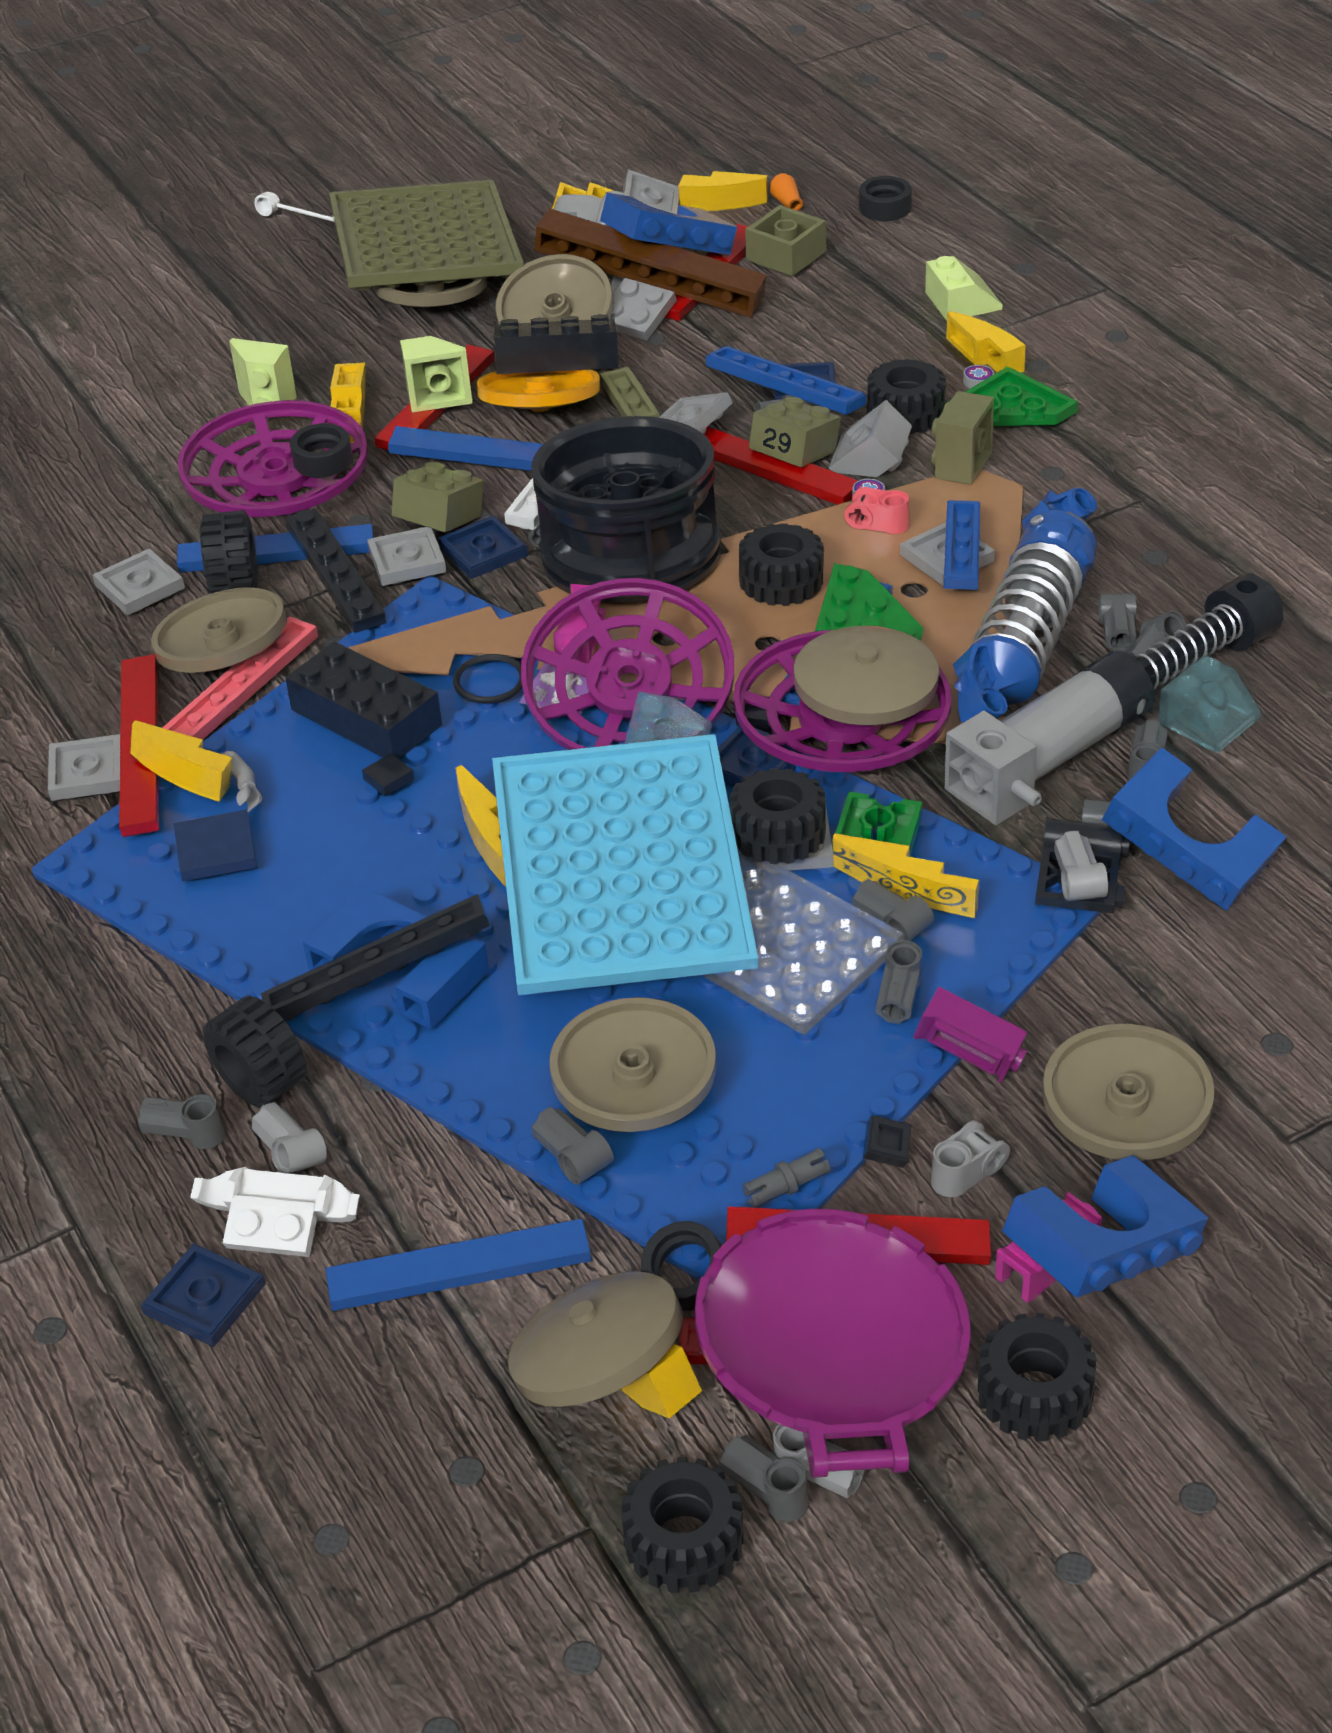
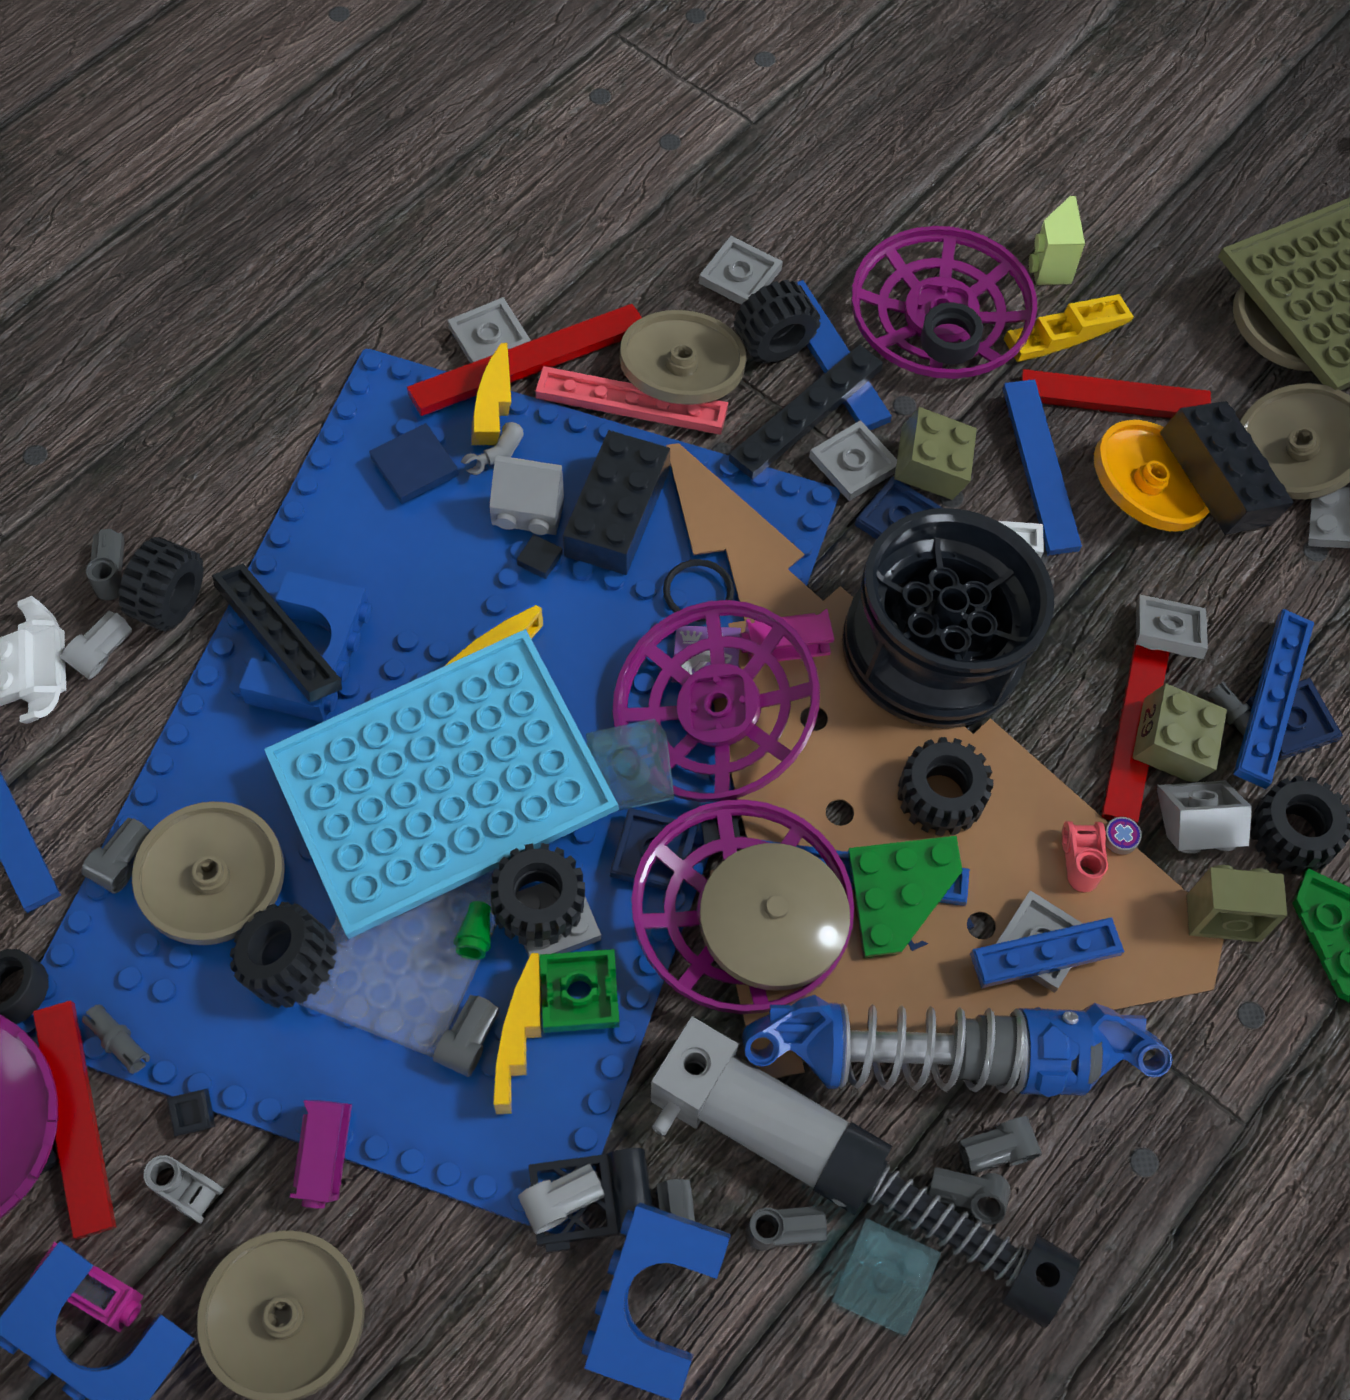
camera: 65 degrees right, 20 degrees up
(320, 753) = (526, 495): none -> light grey slope
(435, 373) = (1110, 375): yellowish green slope -> none
(627, 393) = (1185, 562): olive plate -> none
(741, 987) = (283, 955): none -> black tyre
(796, 872) = (474, 933): none -> green cone
(899, 981) = (368, 1067): dark grey piece -> none

